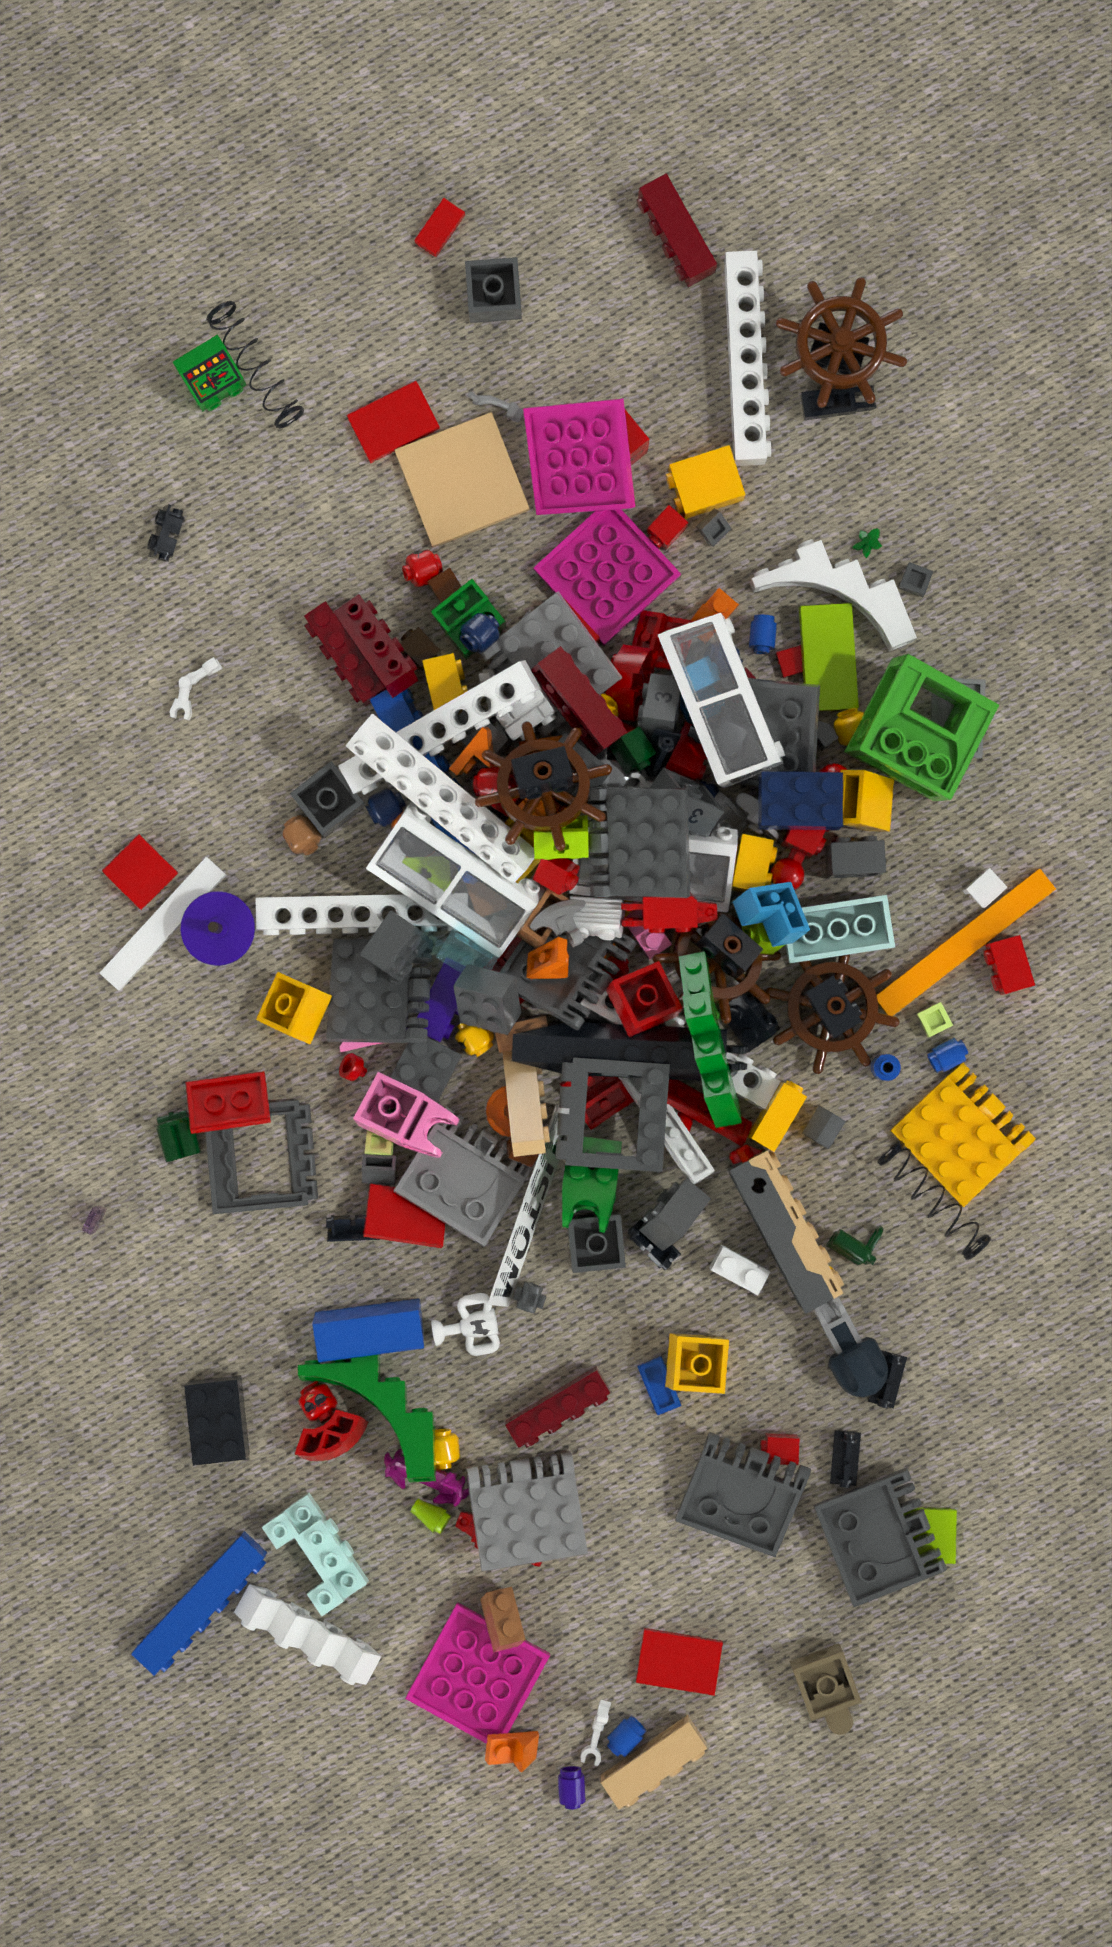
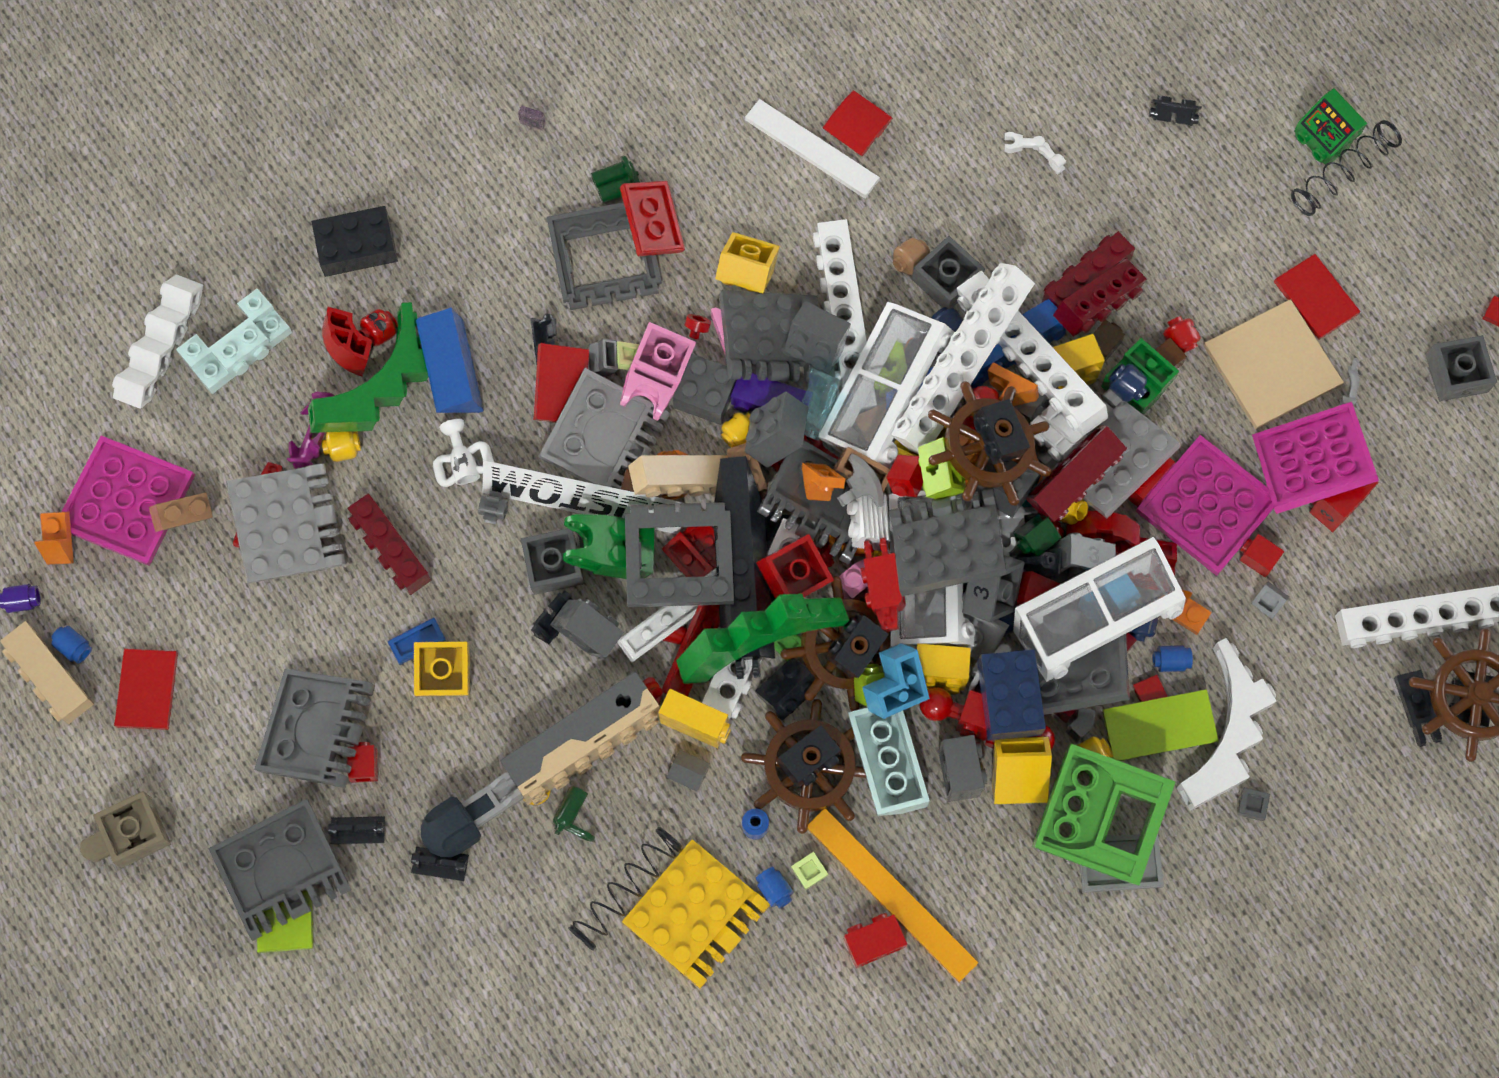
camera: 80 degrees right, 15 degrees down
(199, 1603) = (182, 245): blue brick -> none
(217, 928) = (813, 189): dark purple piece -> none
(431, 1516) = (275, 443): lime cone -> none
(598, 1725) = (80, 618): white piece -> none
(705, 482) = (1313, 587): yellow brick -> none
(739, 1269) = (537, 702): white brick -> none
(868, 542) = (1284, 753): green plant -> none
(985, 888) = (950, 906): white panel -> none

